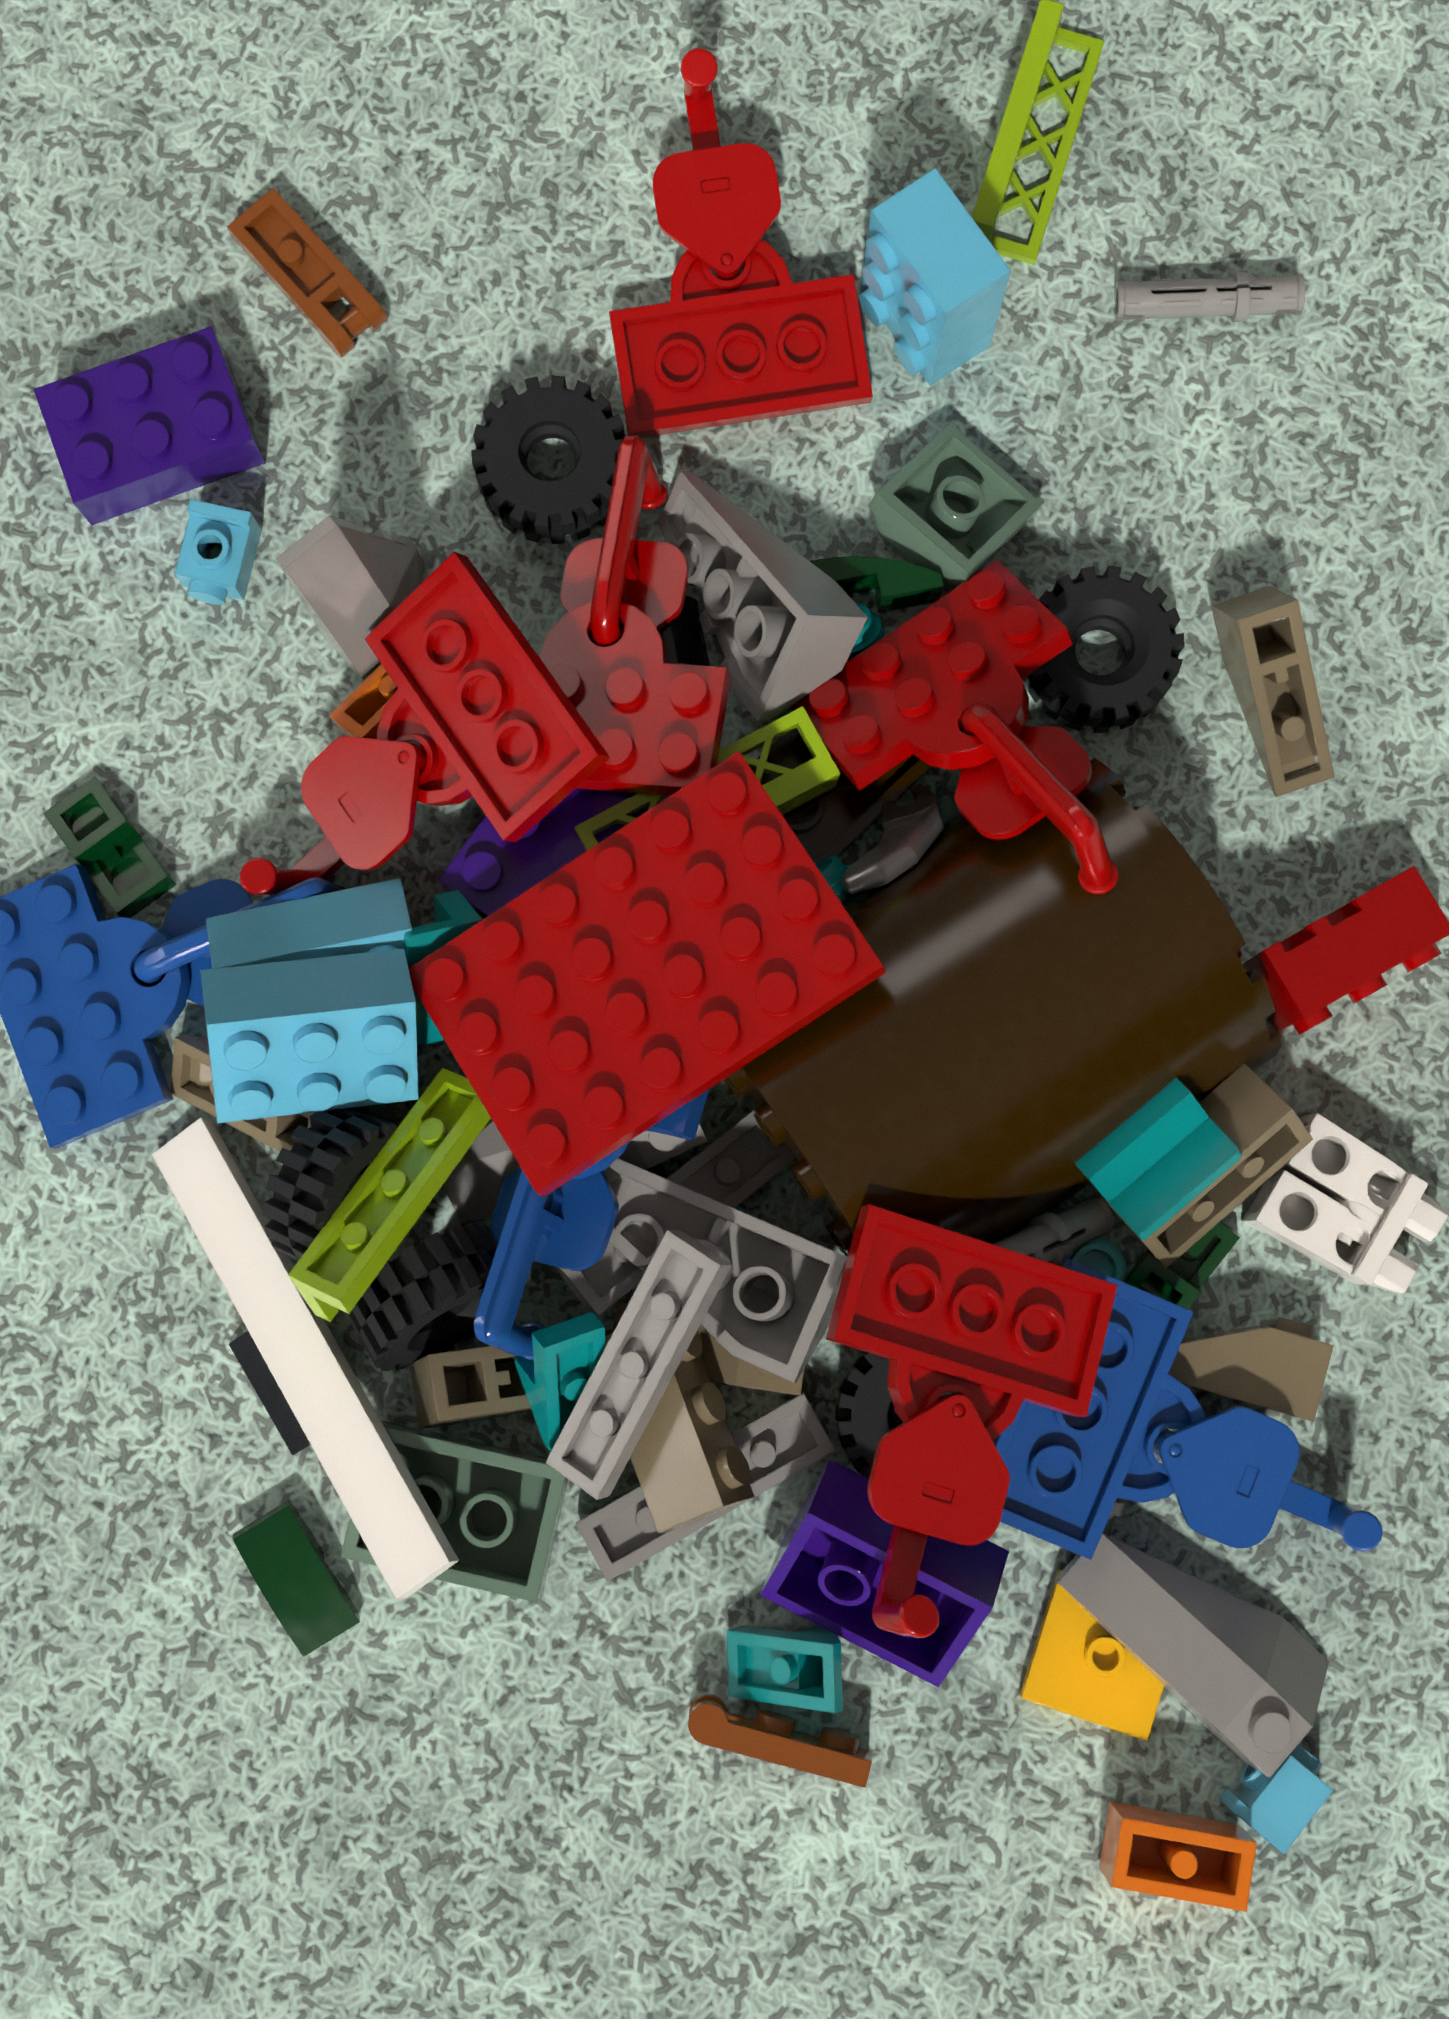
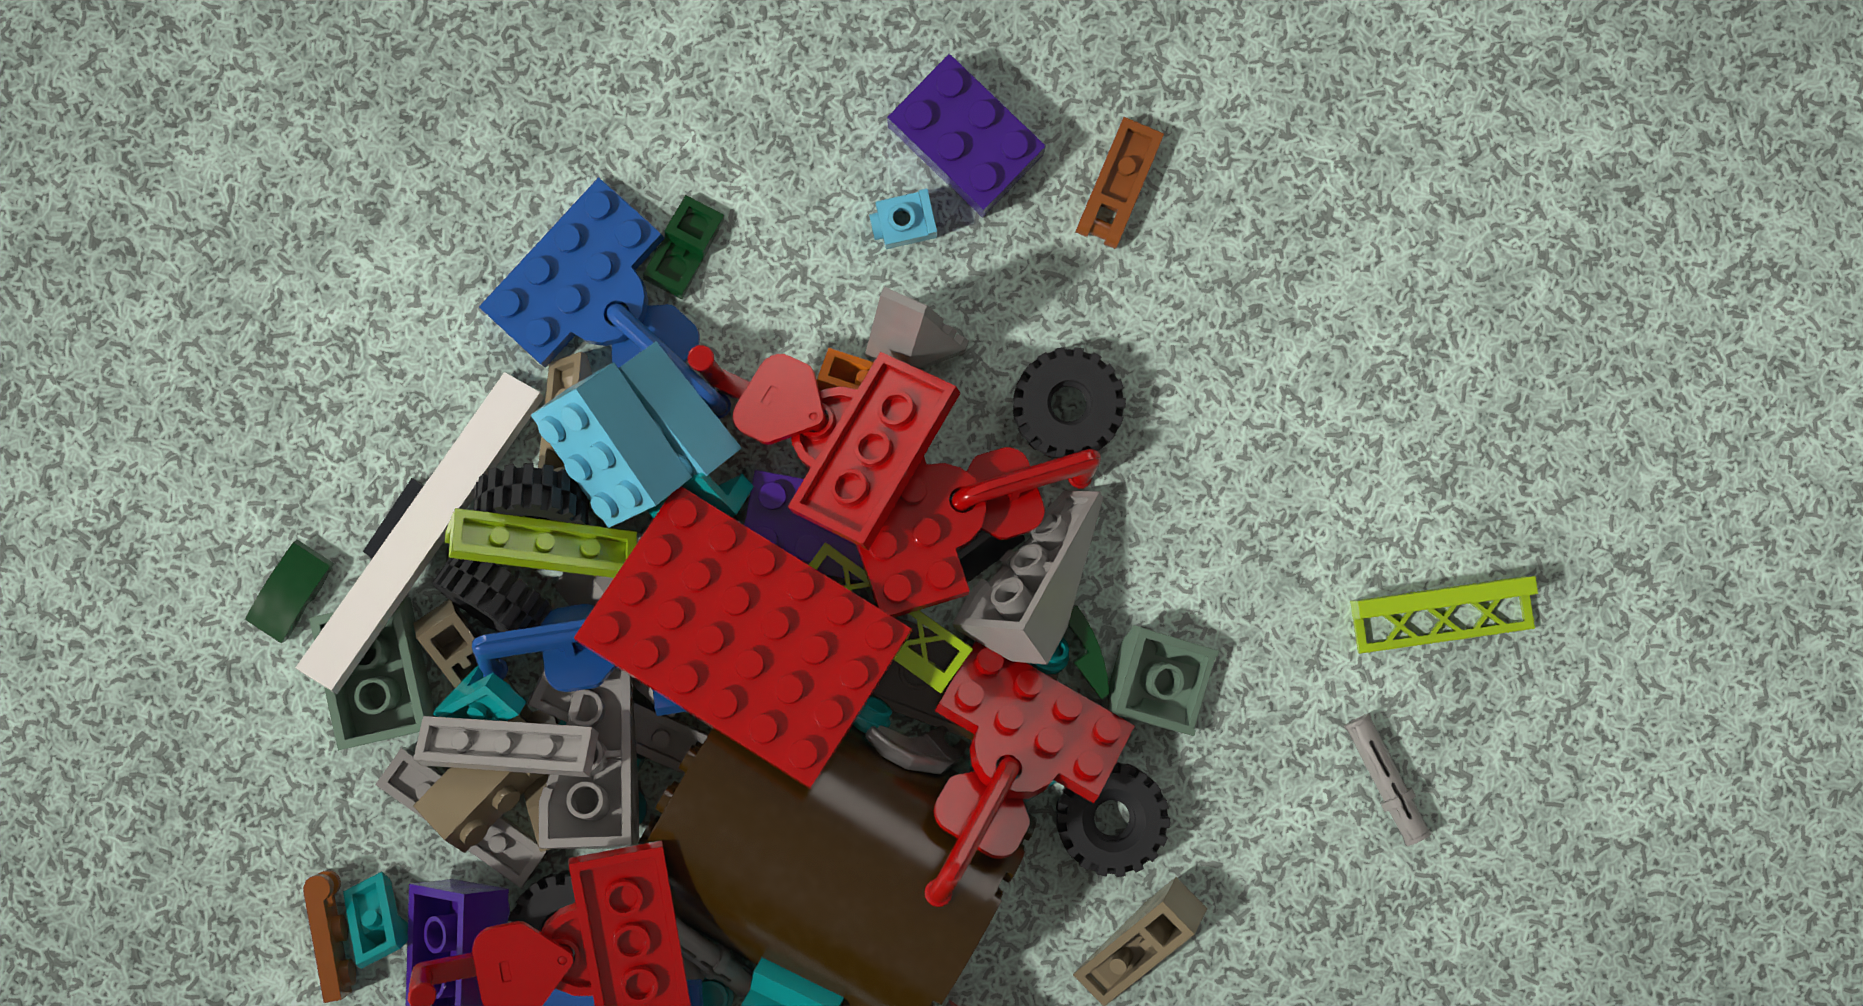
camera: 65 degrees right, 5 degrees up
(729, 341) = (1206, 490): red plate -> none
(931, 278) = (1296, 597): medium azure brick -> none

